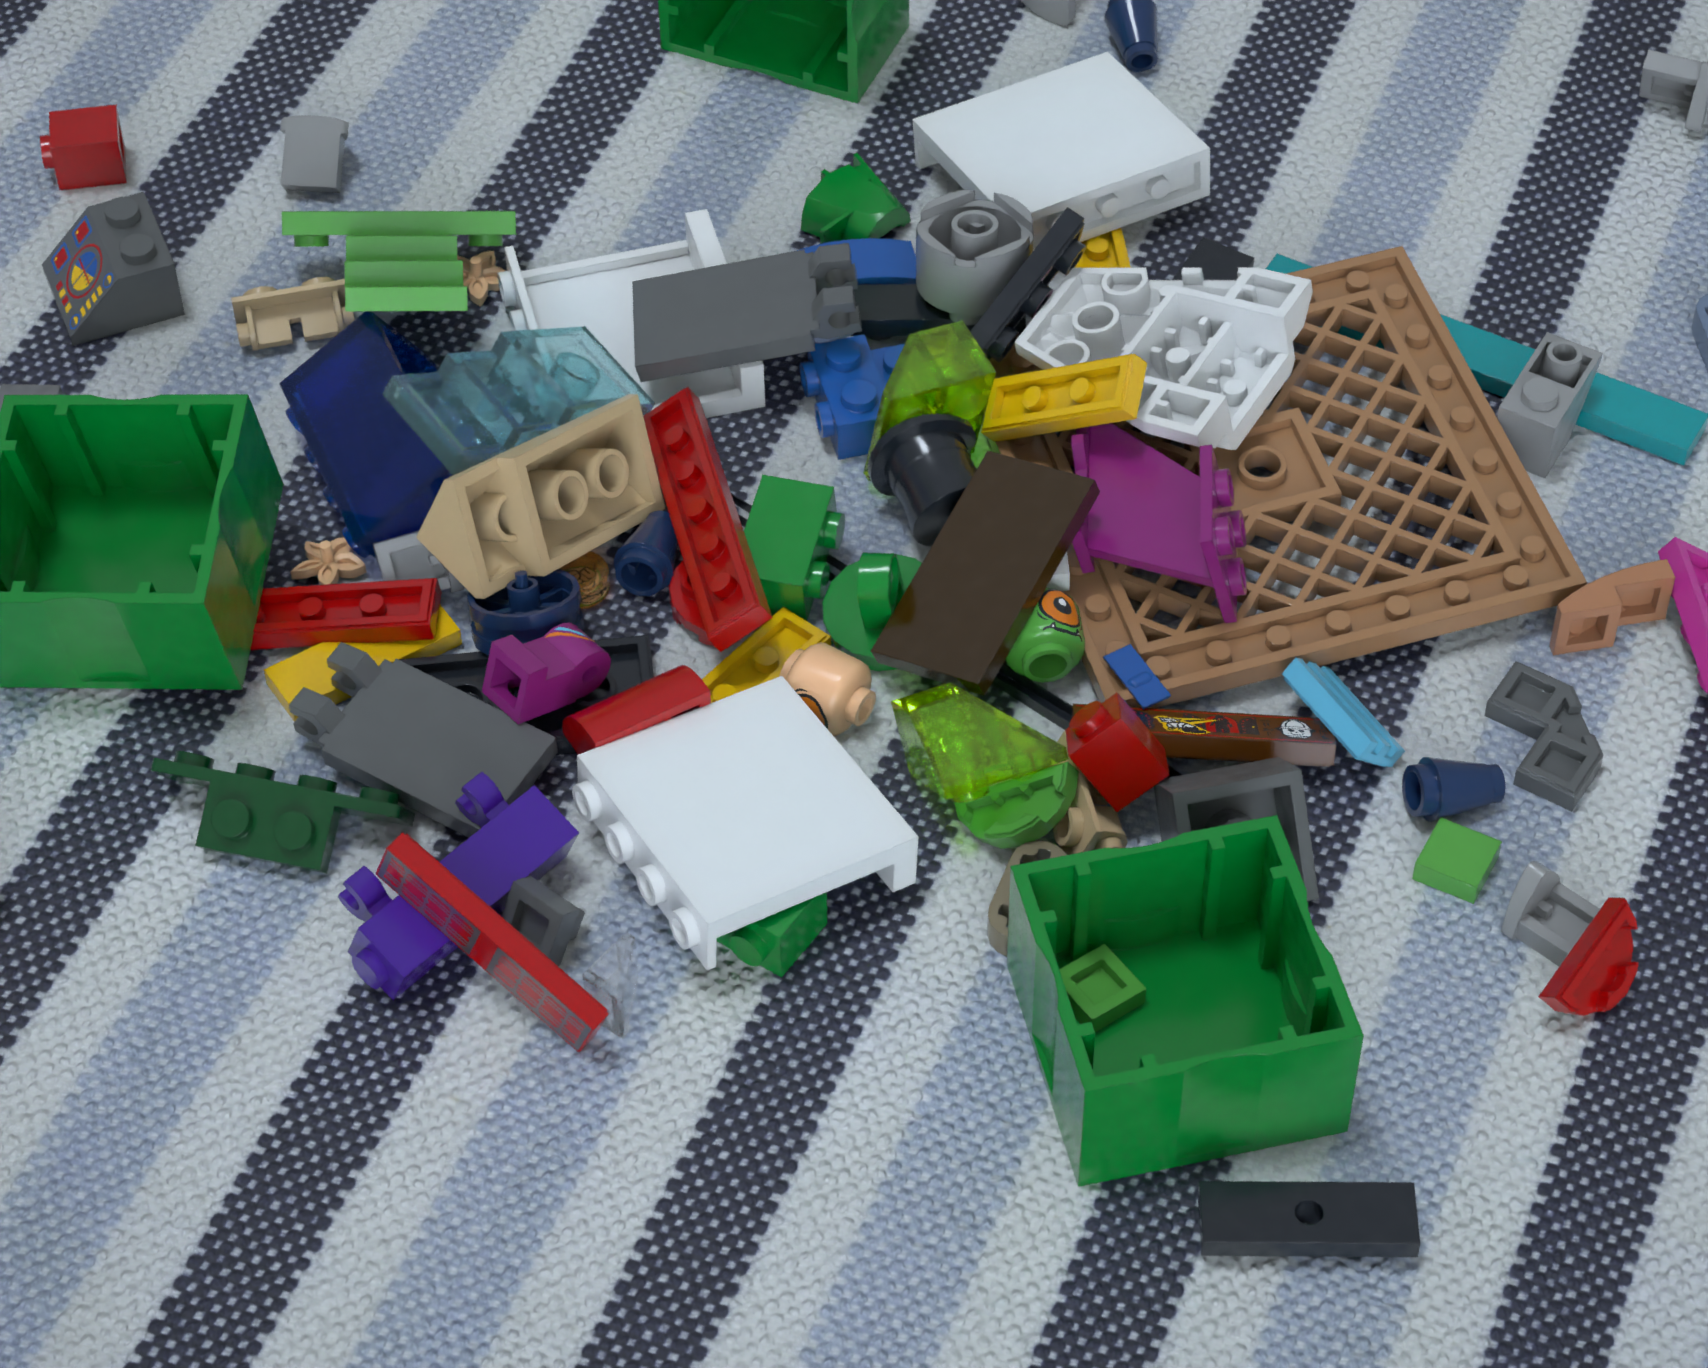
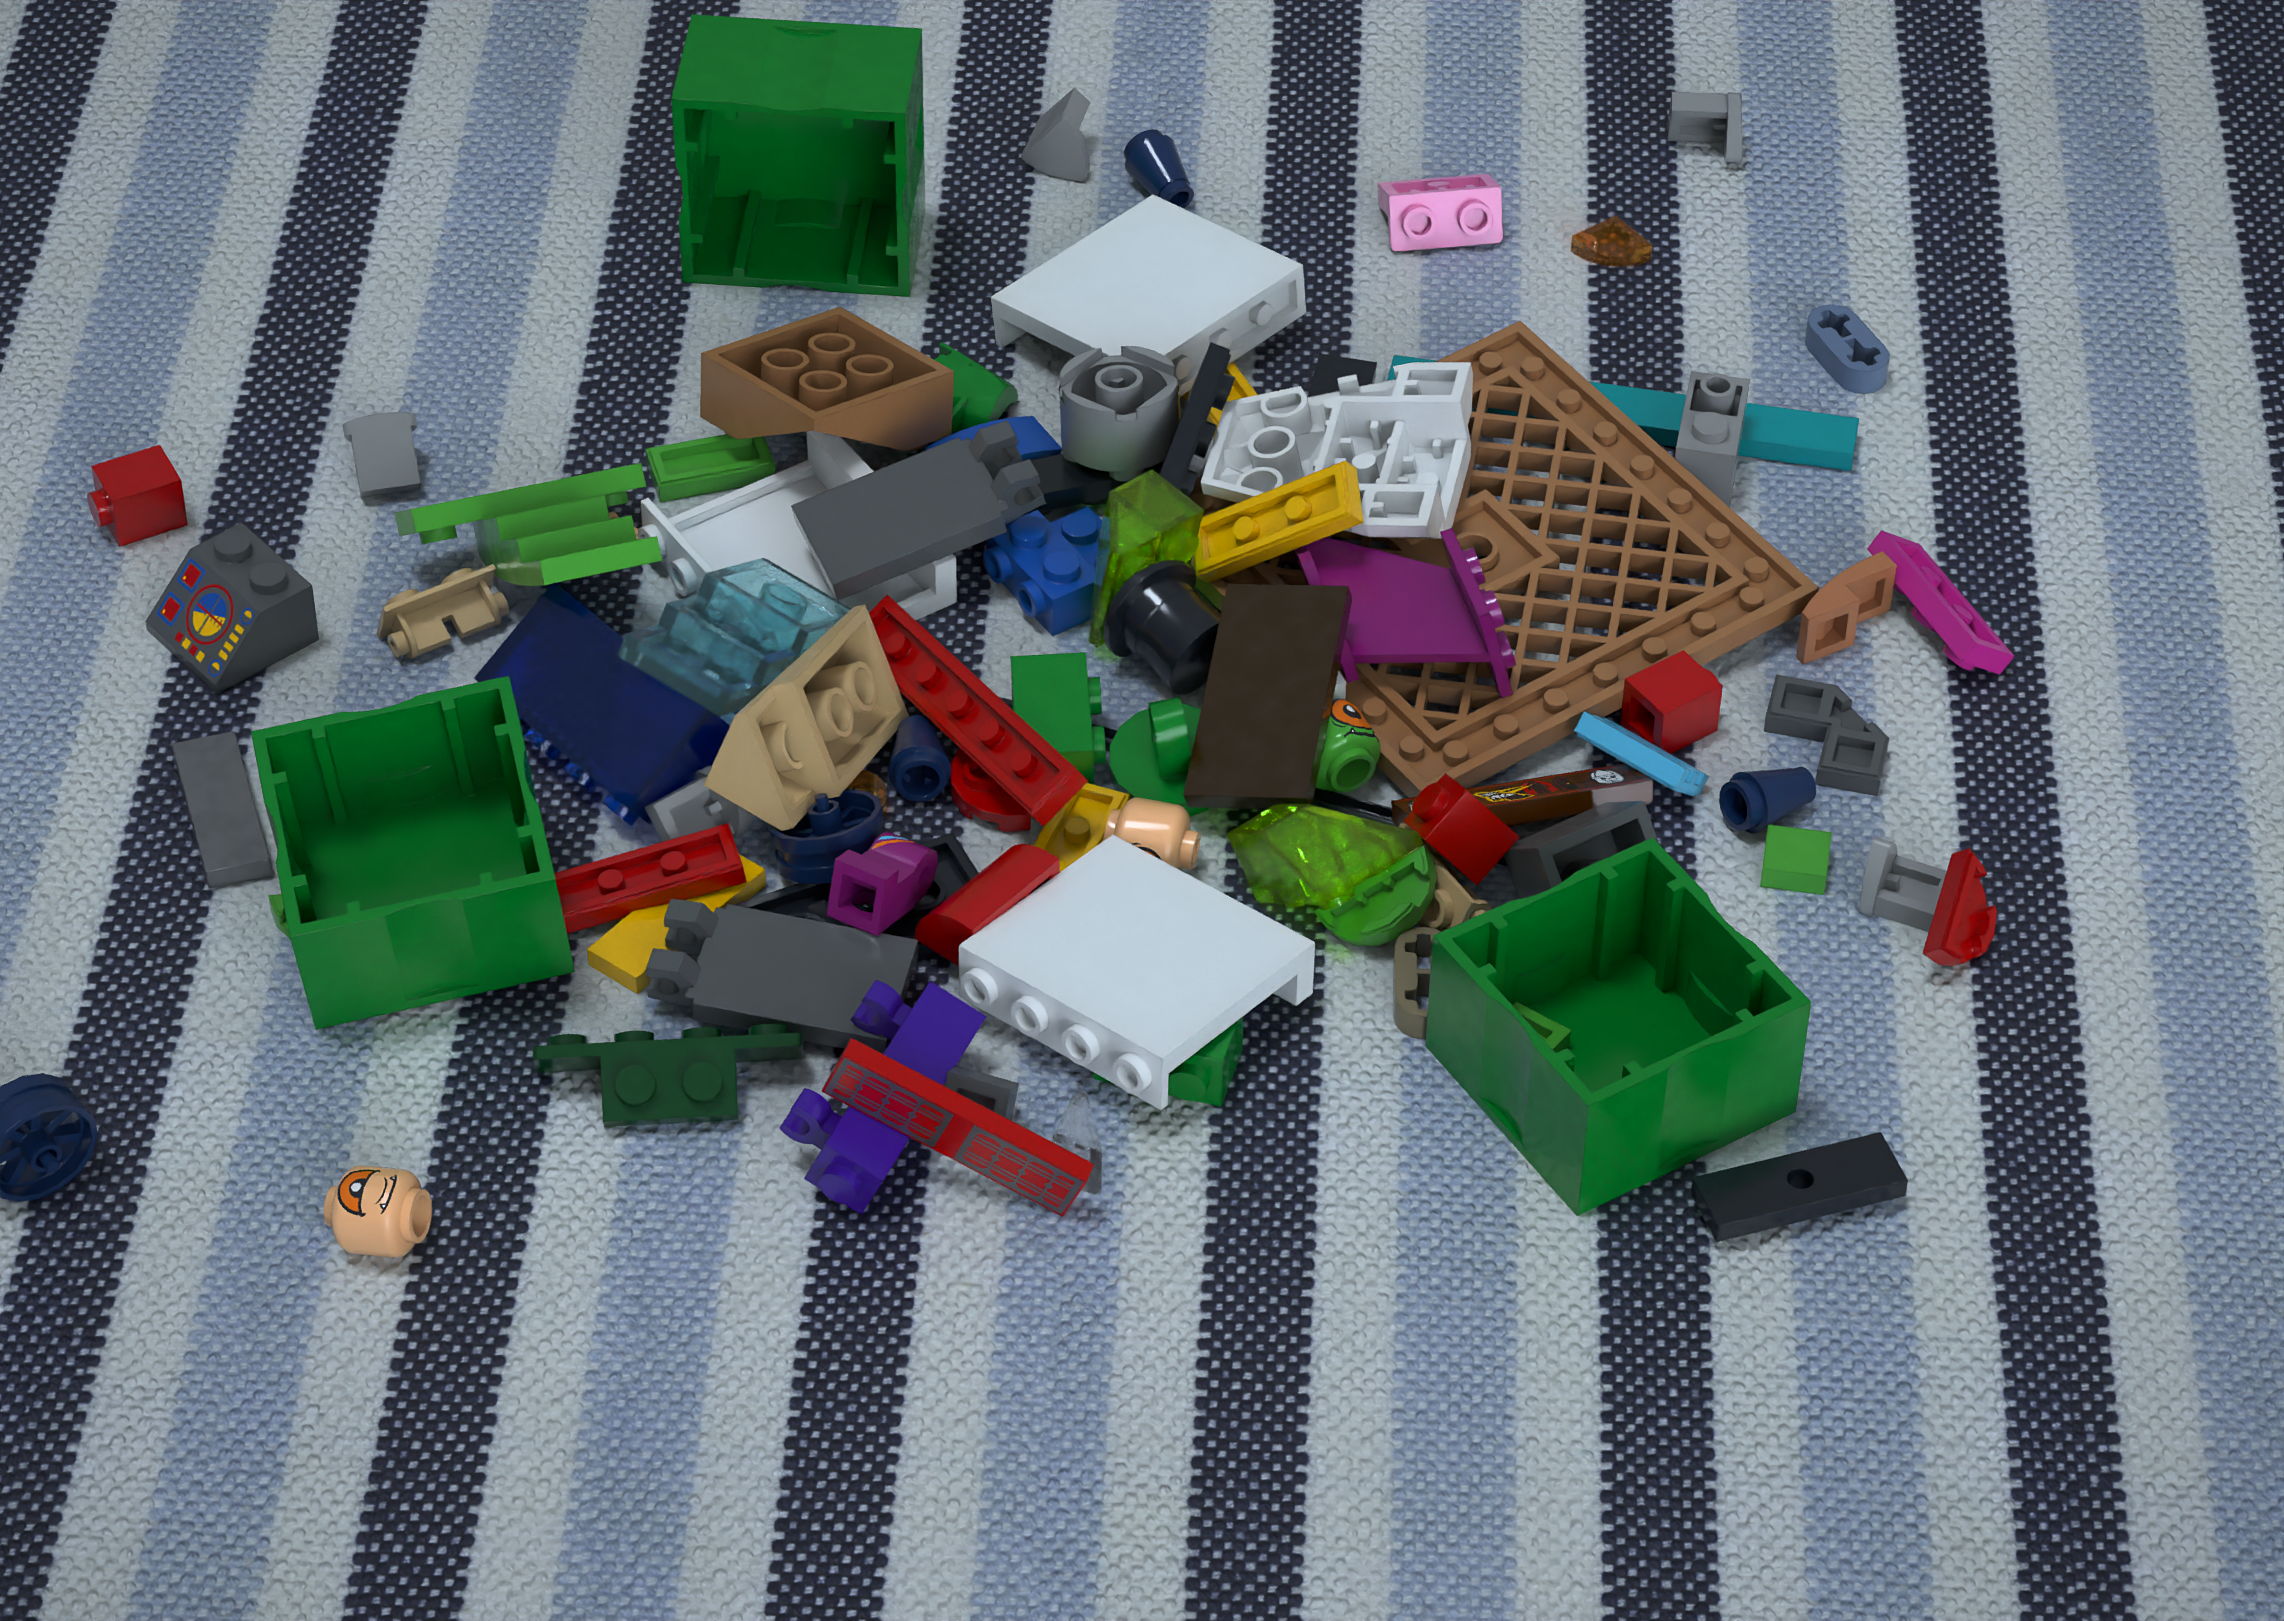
camera: 20 degrees left, 5 degrees down
(329, 562) = (599, 838): light nougat plant -> none
(599, 224) = (708, 466): none -> bright green tile
(721, 170) = (828, 378): none -> medium nougat slope
(1137, 676) = (1439, 761): blue piece -> none
(1383, 123) = (1442, 212): none -> bright pink bracket
(1395, 667) = (1672, 702): none -> red brick
(1538, 187) = (1611, 244): none -> clear orange tile

